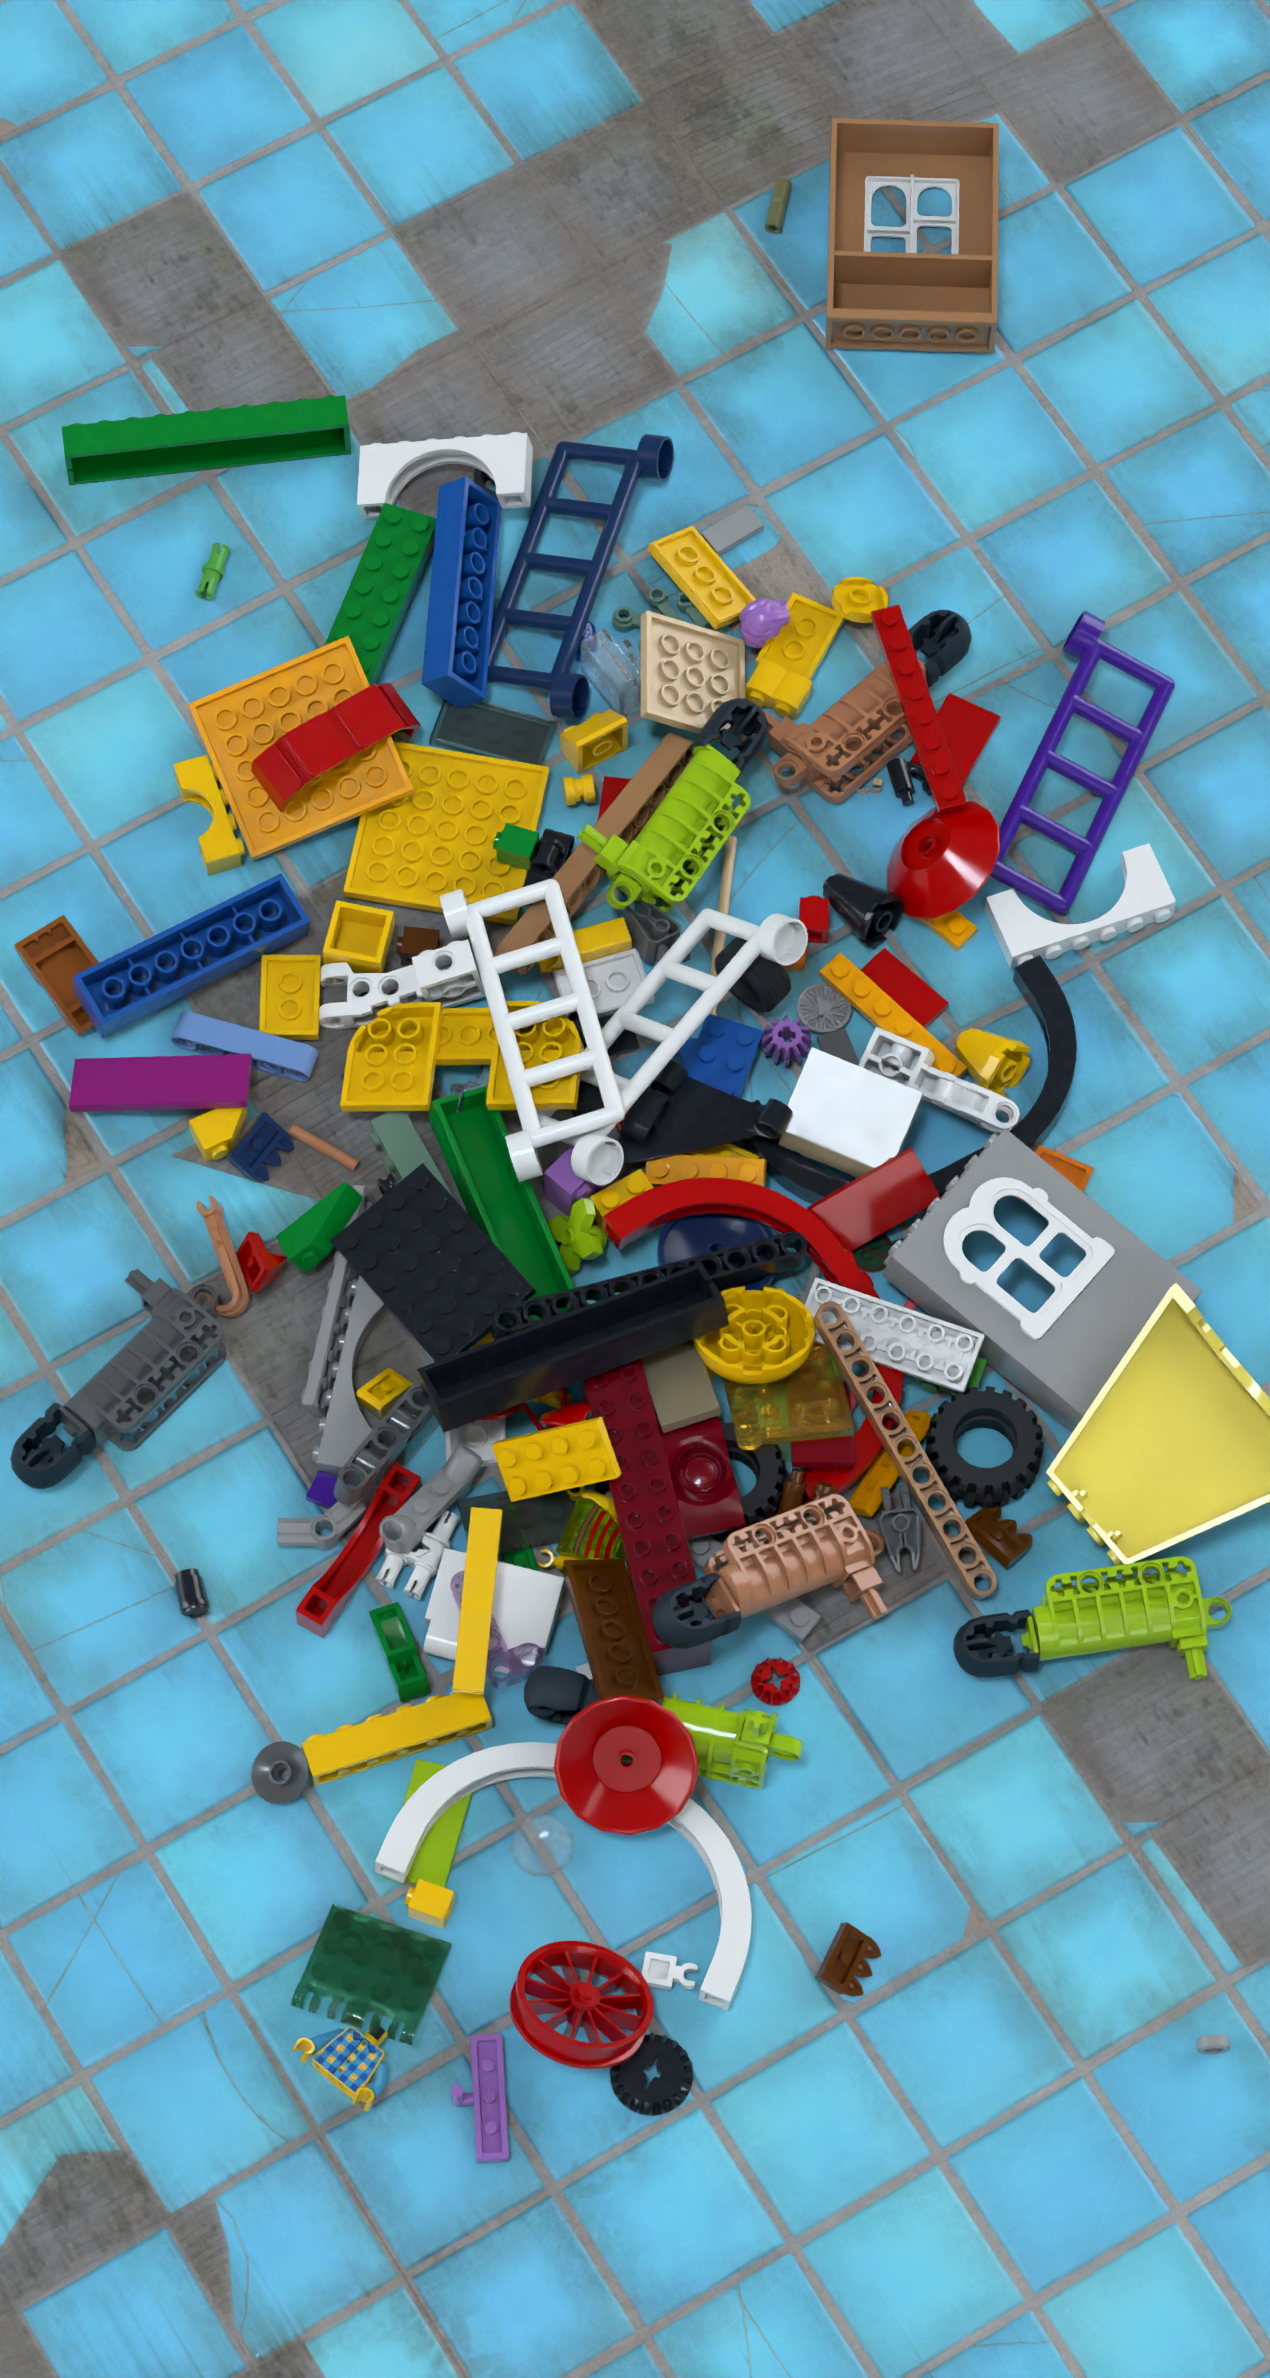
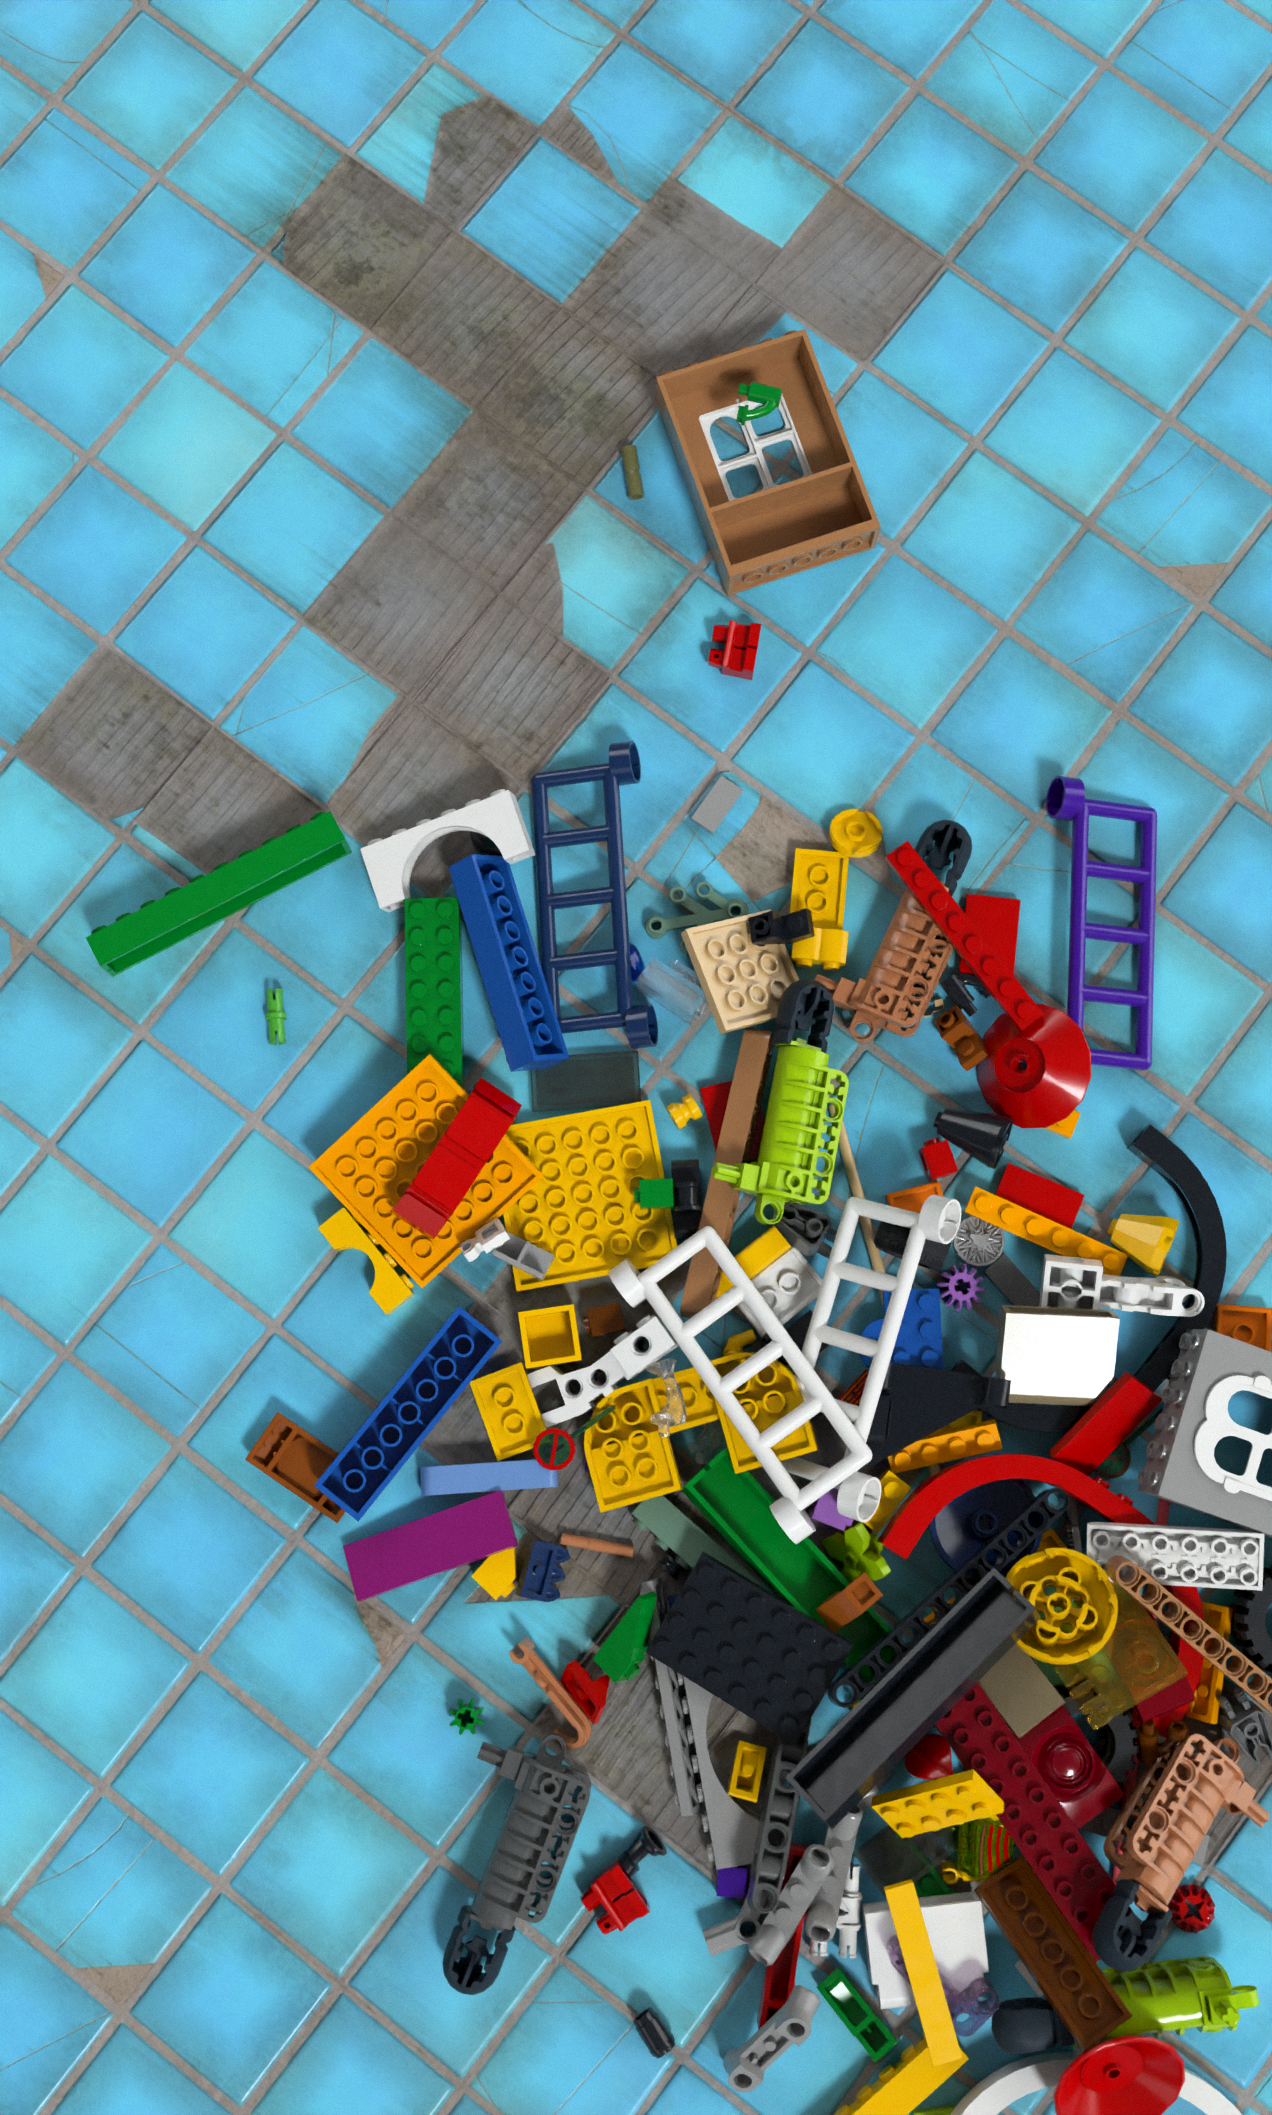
camera: 20 degrees left, 15 degrees up
(130, 1241) = (459, 1718): none -> green gear
(210, 1461) = (618, 1896): none -> red hips
(259, 1424) = (650, 1844): none -> black piece
(305, 1618) = (785, 2027): none -> light grey plate
(322, 1035) = (556, 1448): none -> piece
(338, 826) = (487, 1238): none -> white plate
(353, 1528) = (792, 1904): none -> light grey plate
(363, 858) = (524, 1256): none -> light grey panel
(451, 1033) = (674, 1411): none -> clear animal
(548, 1256) = (849, 1602): none -> dark orange slope
(595, 740) = (678, 1058): yellow slope -> none
(702, 576) = (711, 862): yellow tile -> none
(737, 652) = (778, 929): none -> black slope
(762, 621) = (783, 888): medium lavender hair -> none
(814, 398) = (740, 649): none -> red hips
(886, 816) = (962, 1036): none -> dark orange slope
(933, 170) = (758, 393): none -> green plant
(1027, 935) = (1211, 1030): white arch -> none

